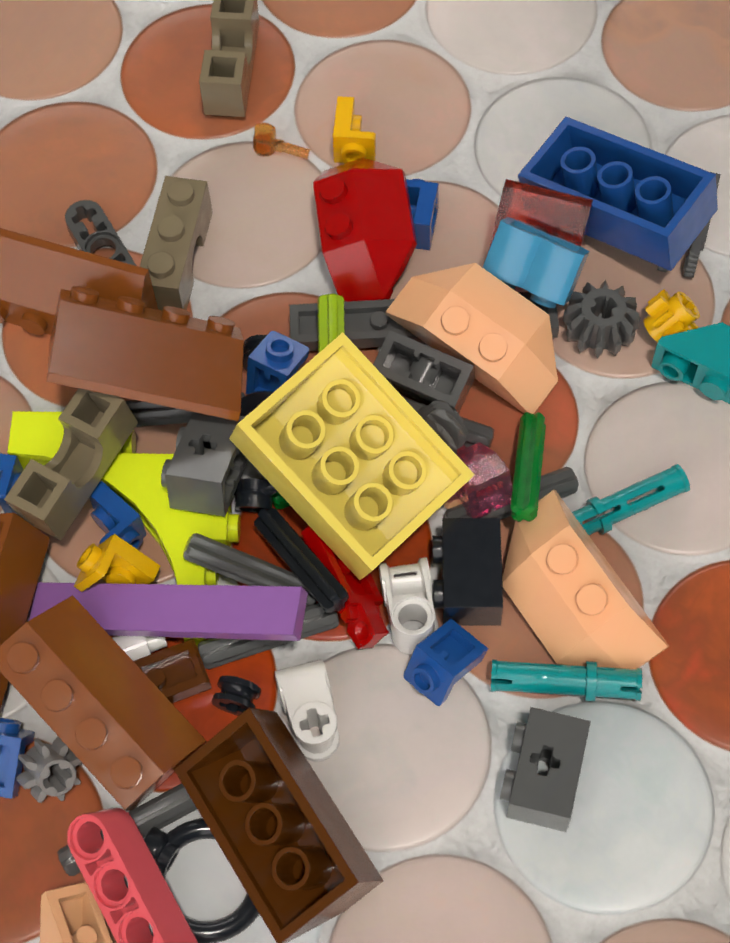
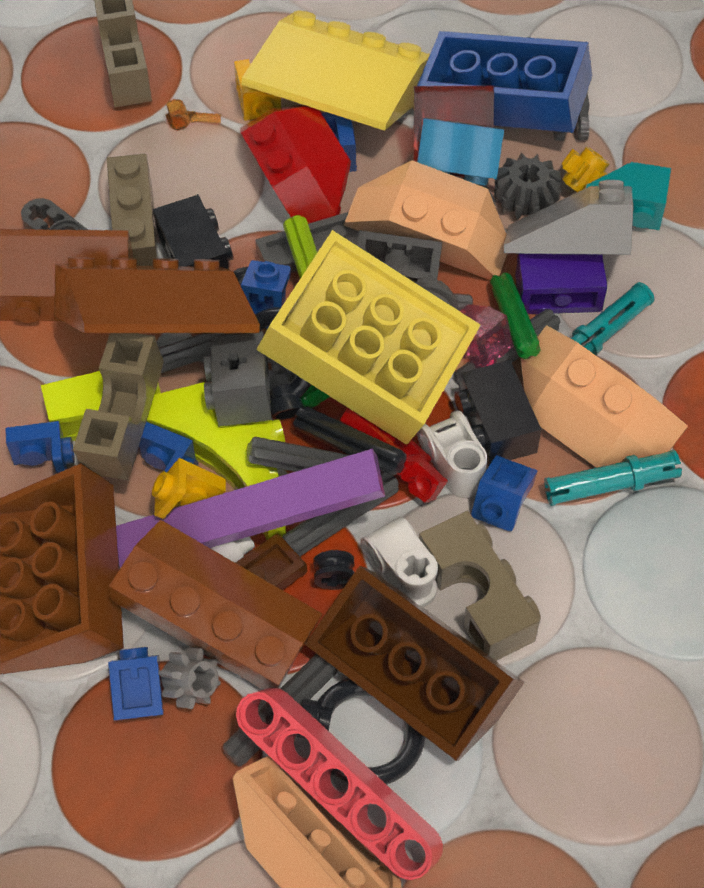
camera: 20 degrees left, 5 degrees down
(224, 284) = (190, 233): none -> black brick
(386, 803) = (465, 554): none -> dark tan arch
(440, 135) = (338, 70): none -> light yellow slope
(548, 798) = (627, 552): dark grey brick -> none
(595, 437) = (561, 282): none -> dark purple brick
(636, 383) = (584, 223): none -> light grey slope

